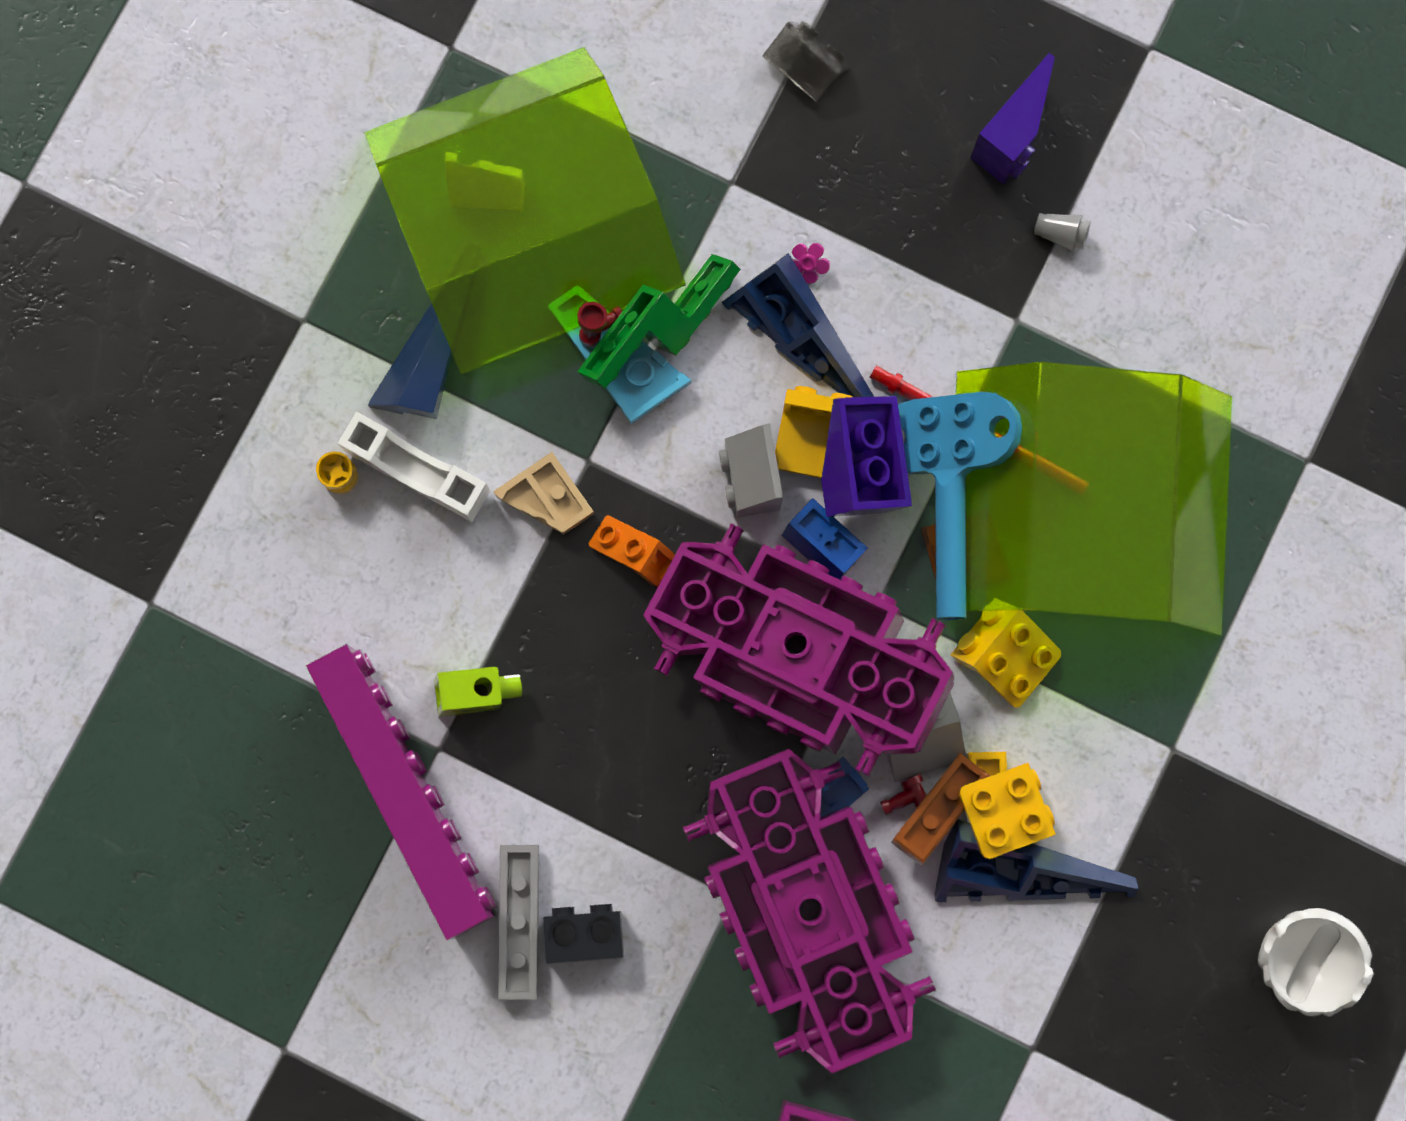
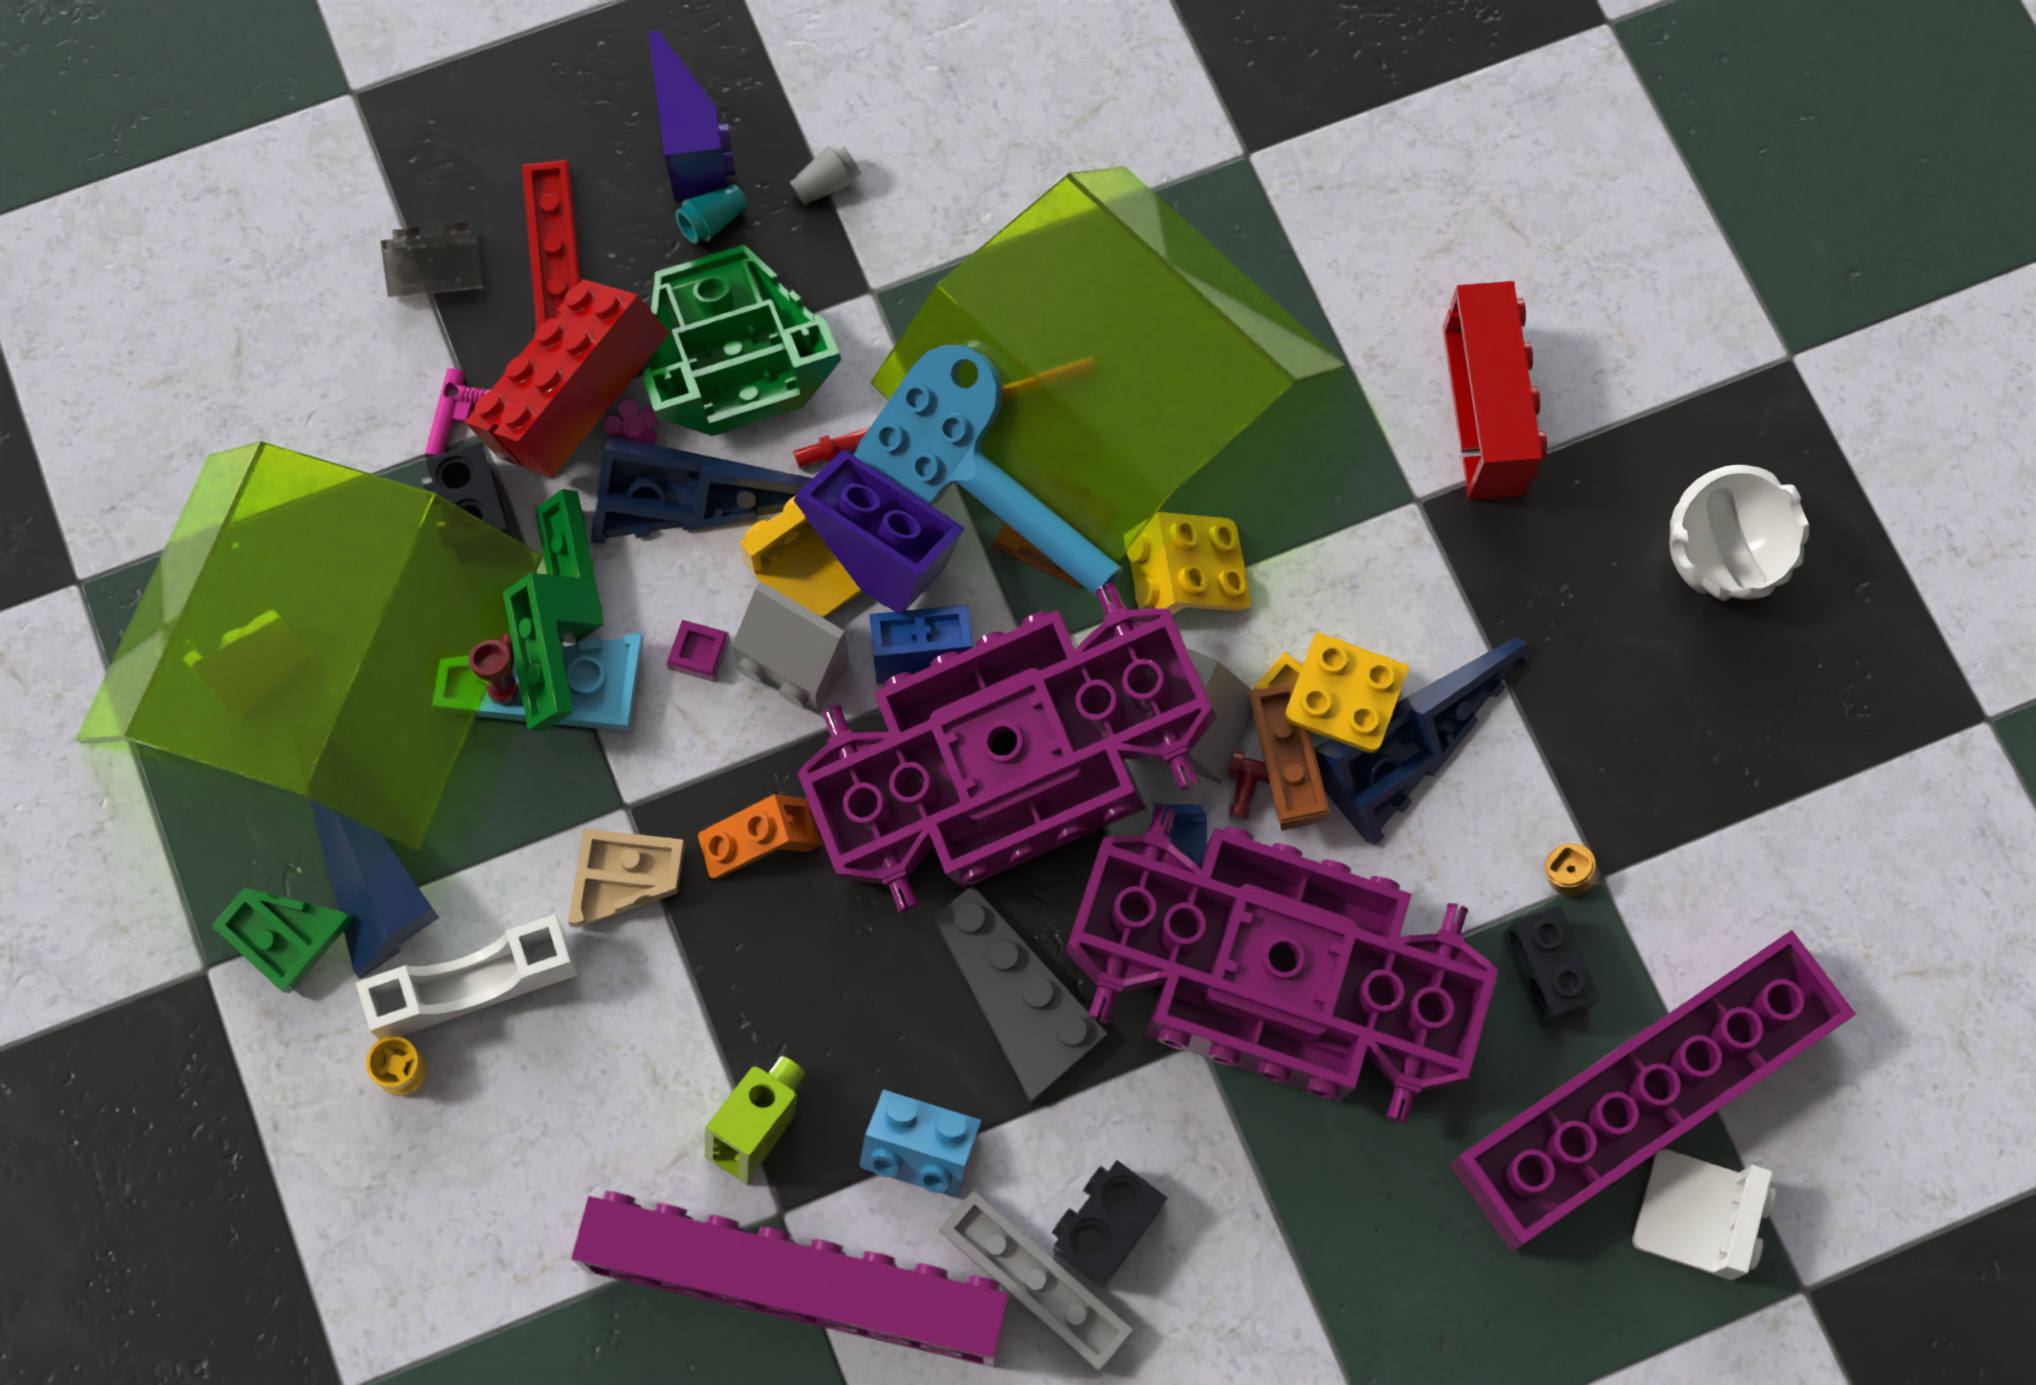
camera: 50 degrees left, 10 degrees down
(353, 343) = (280, 934): none -> green wing
(539, 791) = (919, 1143): none -> dark azure bracket
(669, 777) = (1025, 1004): none -> dark grey wing
(688, 218) = (479, 495): none -> black brick
(711, 419) = (698, 650): none -> magenta tile
(731, 155) = (450, 409): none -> dark pink hose
(801, 202) = (567, 377): none -> red piece
(877, 118) = (551, 235): none -> red tile
(907, 272) = (734, 345): none -> green wedge
(948, 1065) = (1551, 966): none -> black brick
(978, 186) = (709, 213): none -> teal cone
(1019, 1028) = (1571, 869): none -> pearl gold tile
(1279, 739) = (1493, 390): none -> red piece

